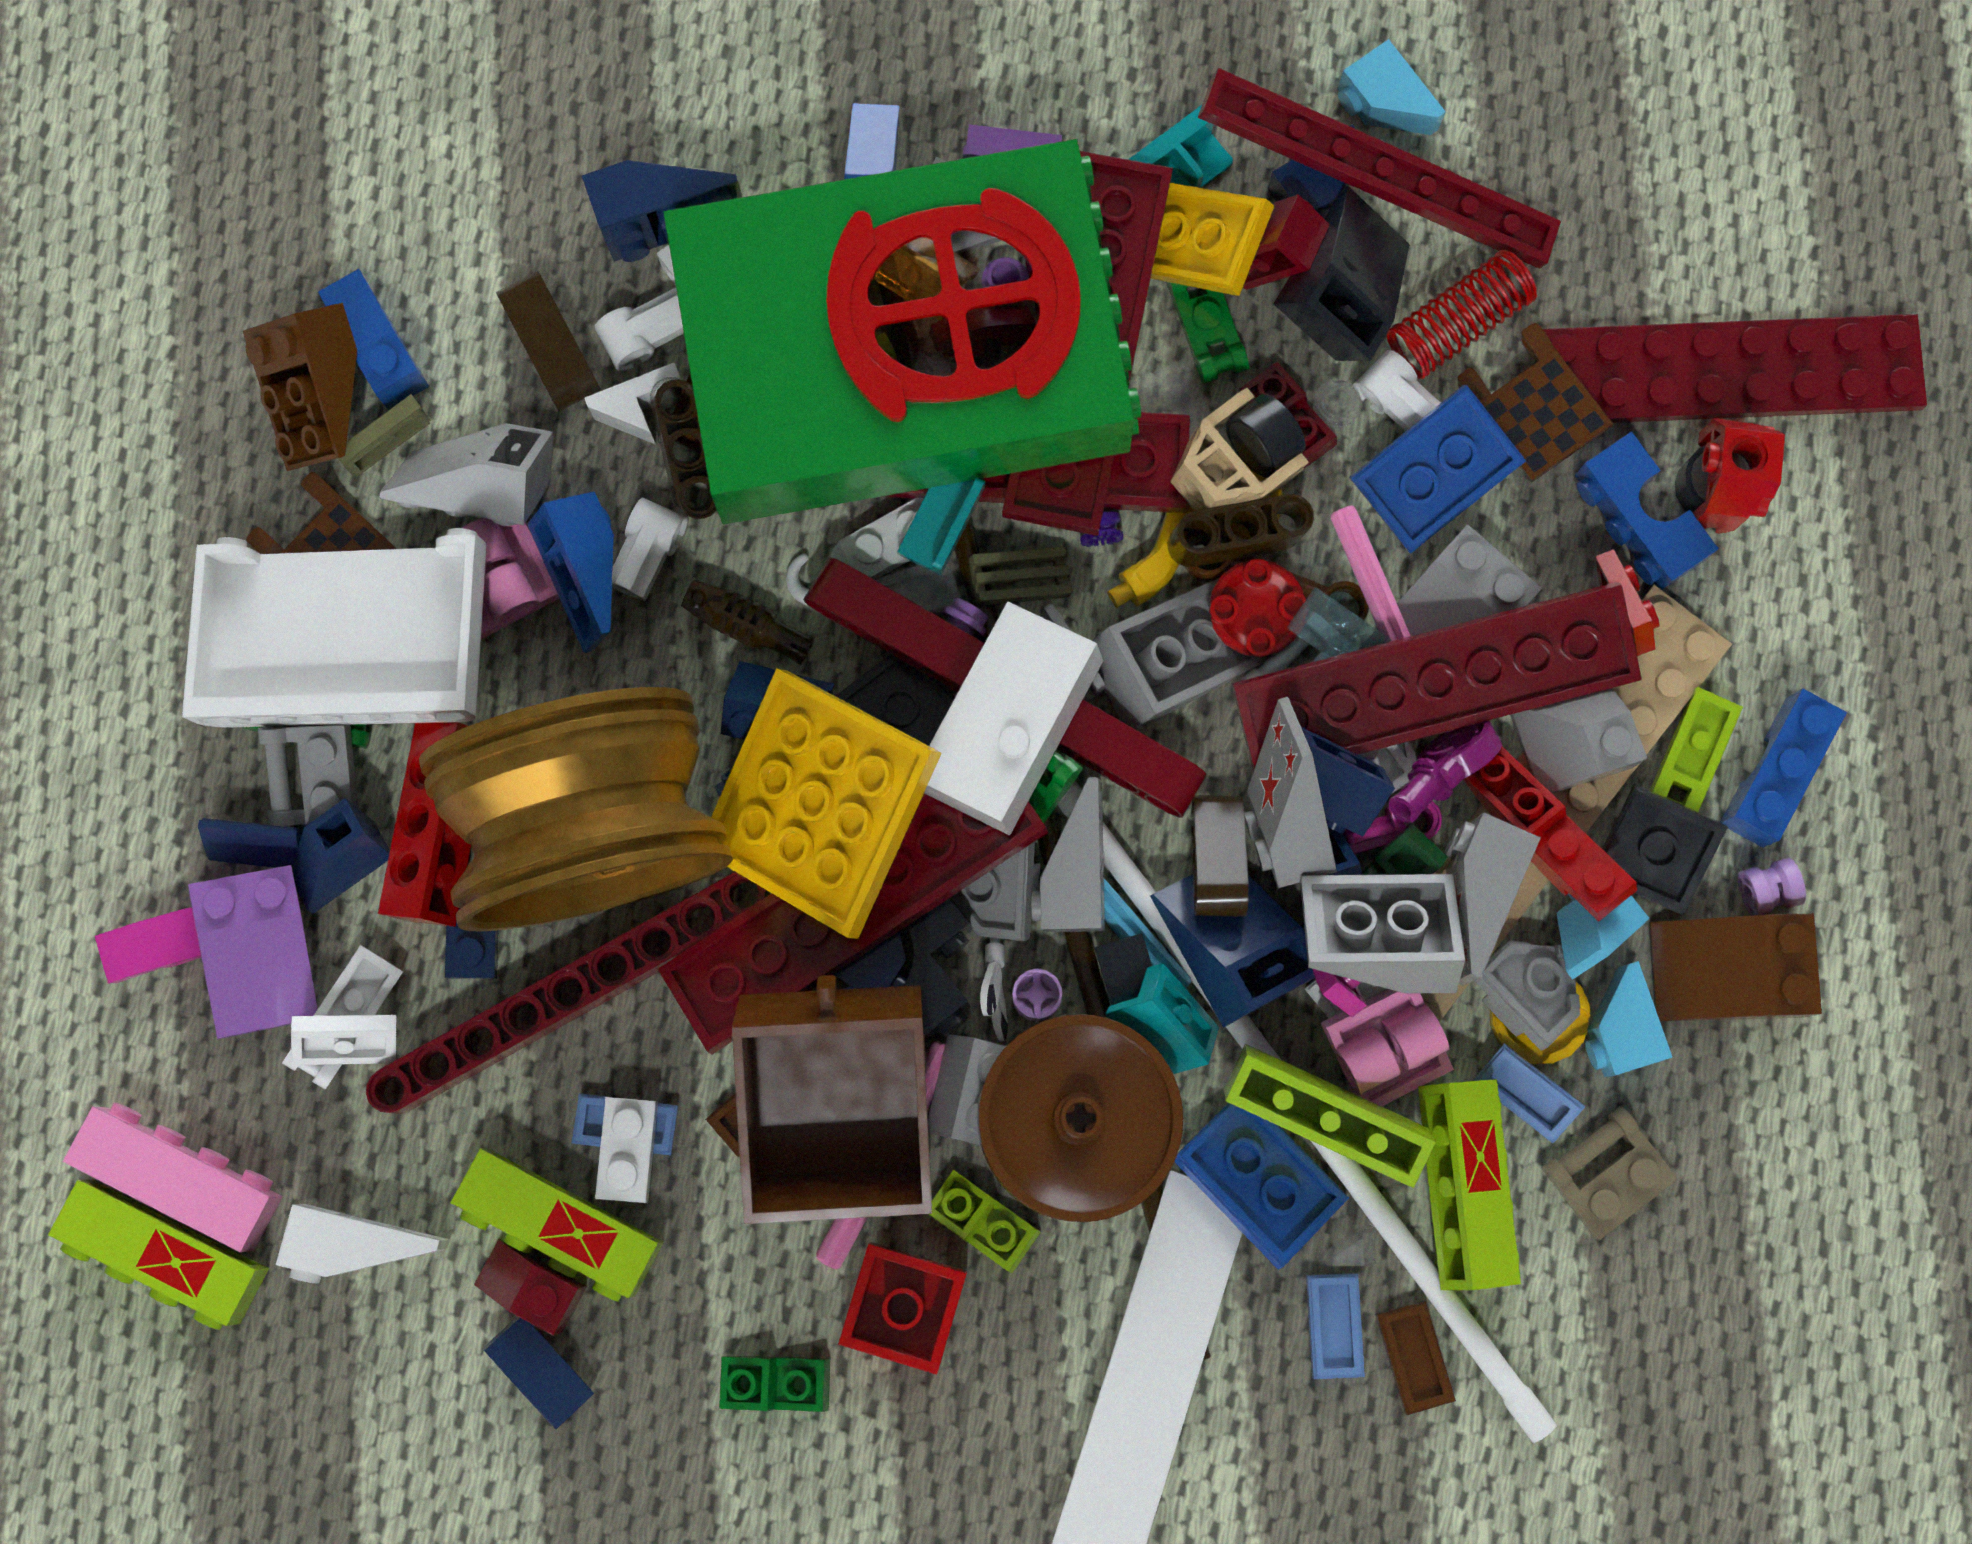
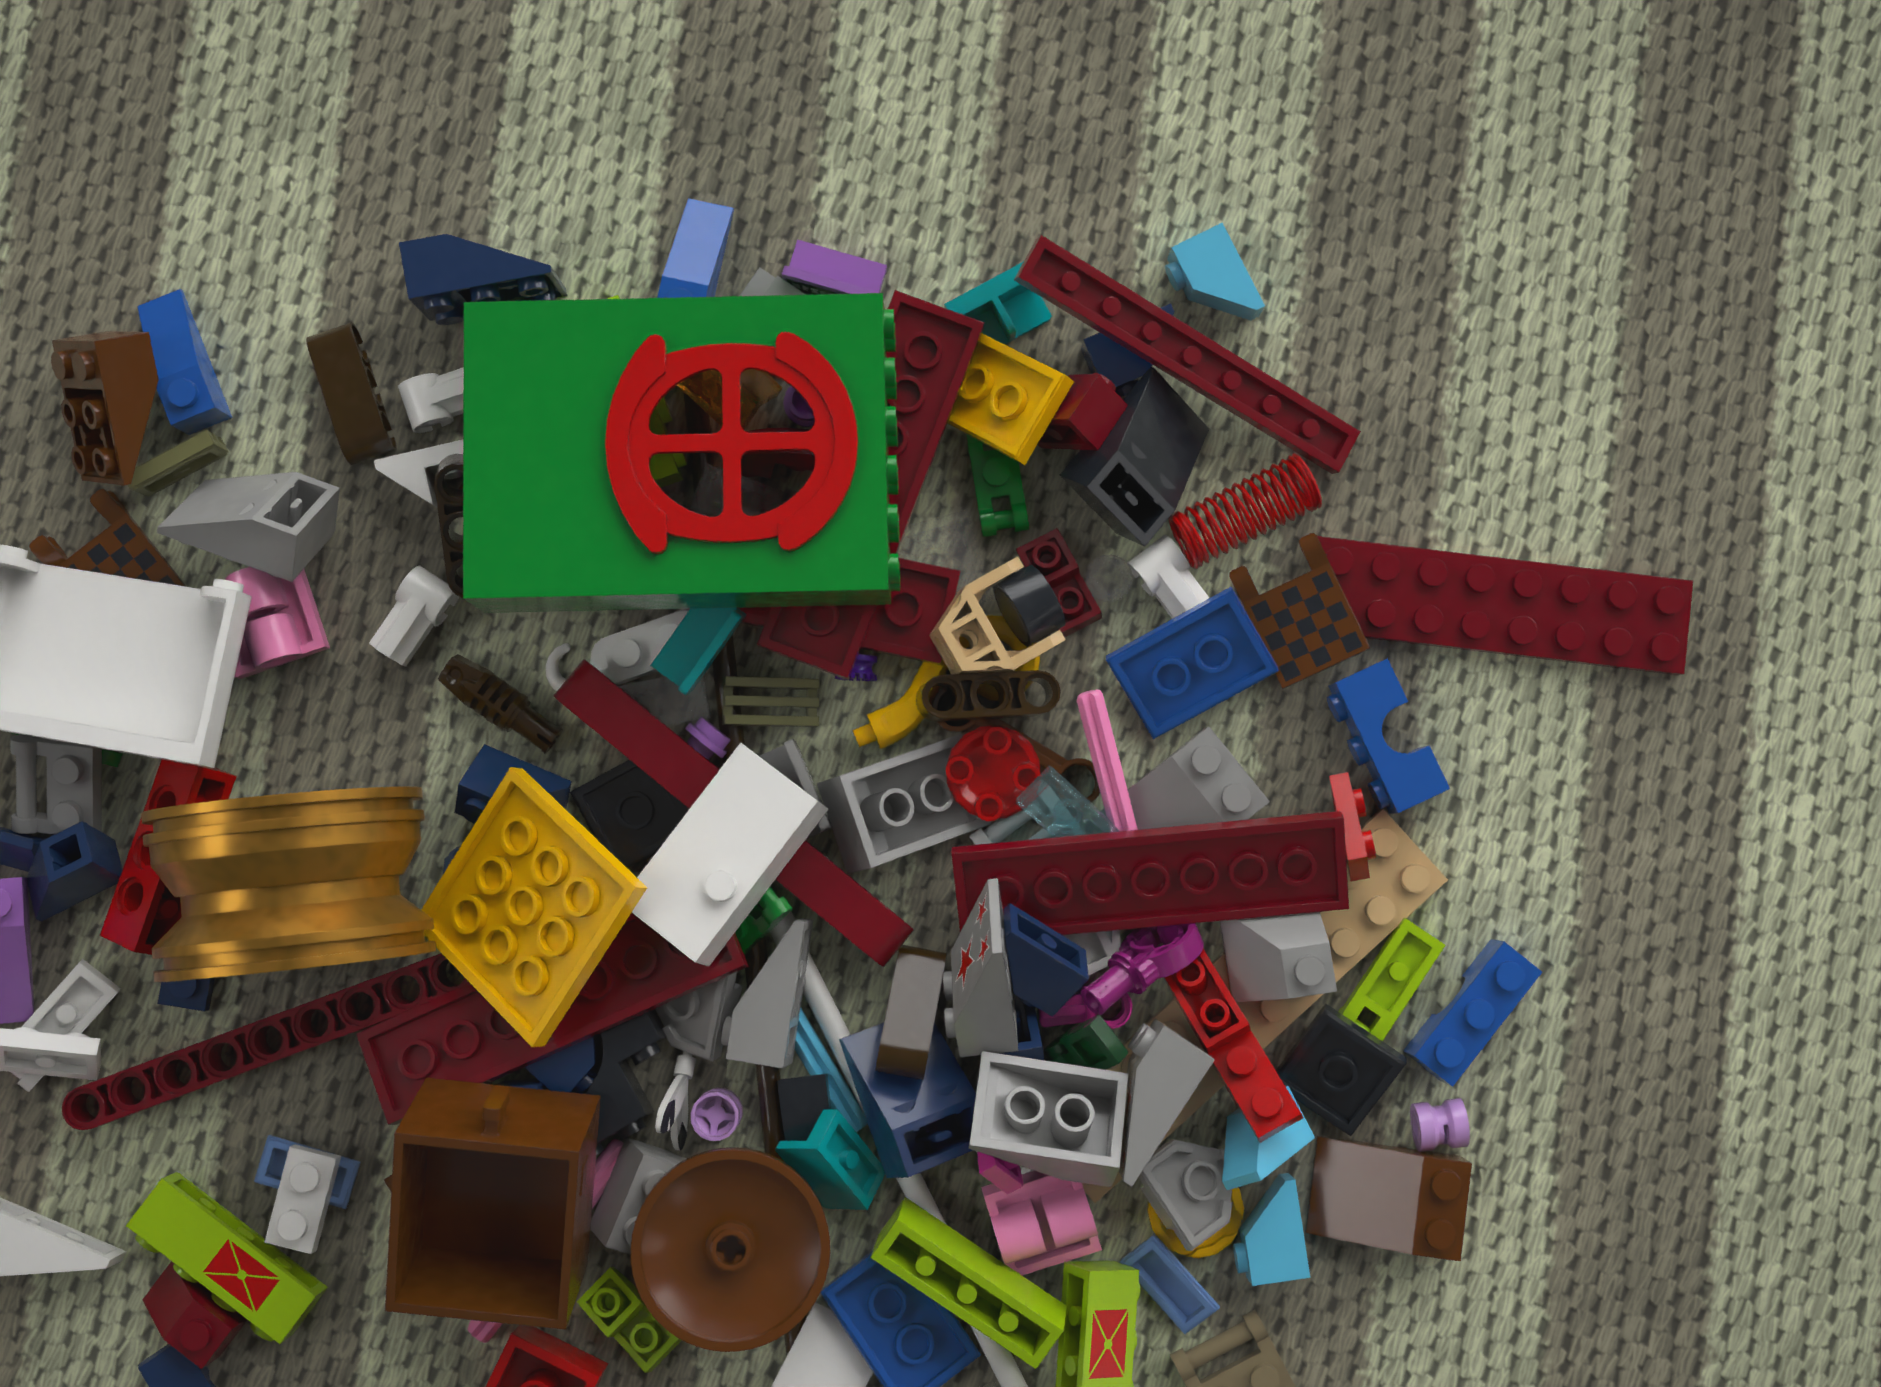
camera: 10 degrees right, 5 degrees up
(578, 554) = (345, 613): blue slope -> none
(1731, 474) = (1476, 717): red piece -> none

